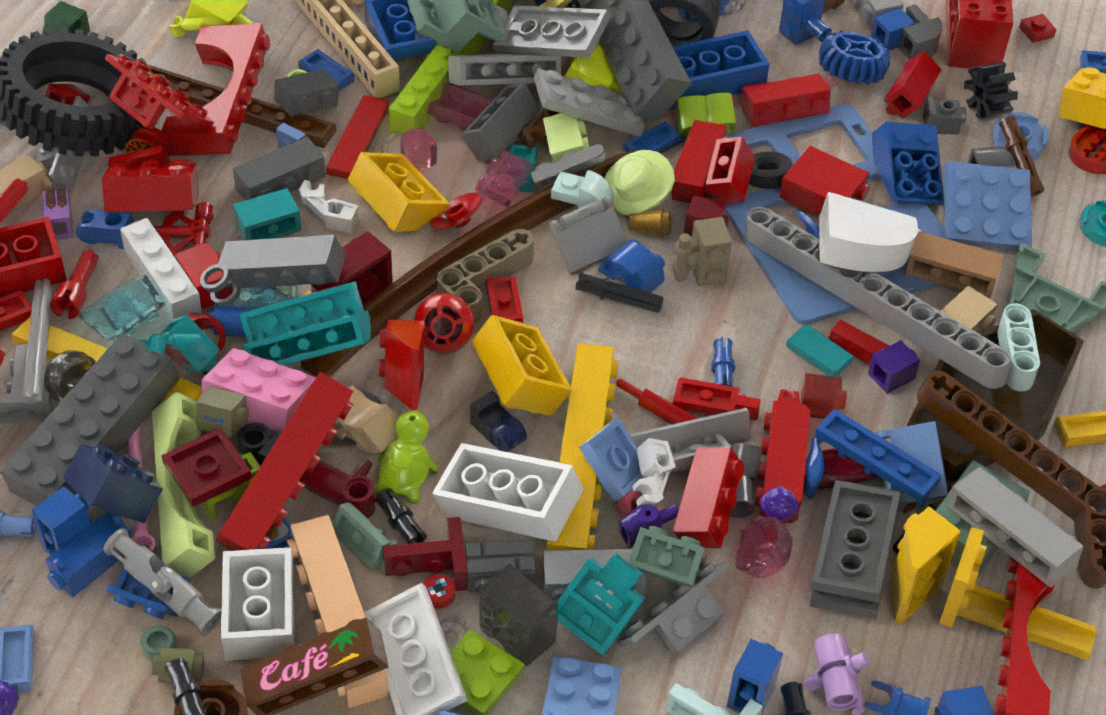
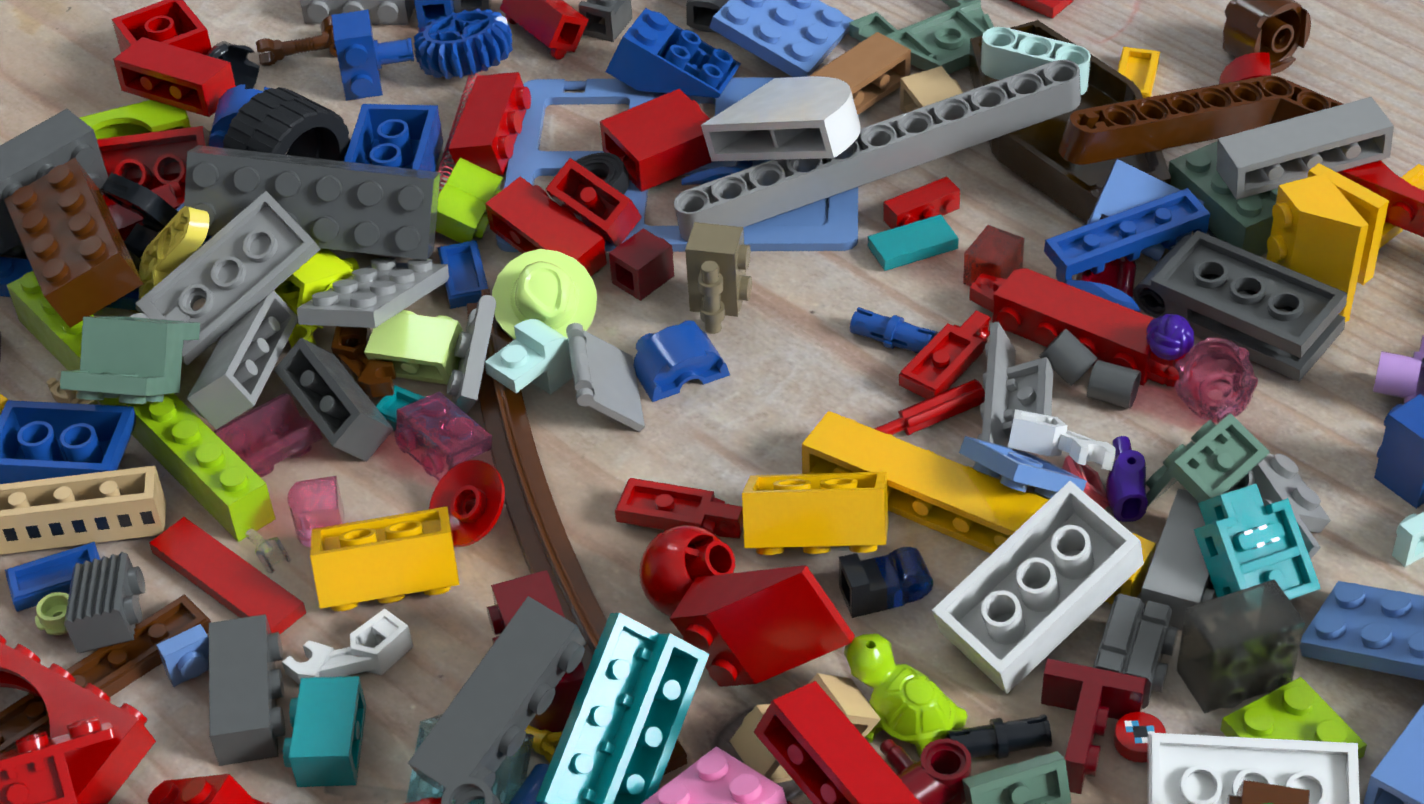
camera: 60 degrees left, 5 degrees down
(496, 260) = (607, 544): dark tan beam -> none
(619, 292) = (703, 396): black axle -> none
(651, 222) = (615, 314): pearl gold cone -> none
(709, 496) = (1121, 400): brick -> none
(893, 366) = (979, 185): dark purple brick -> none

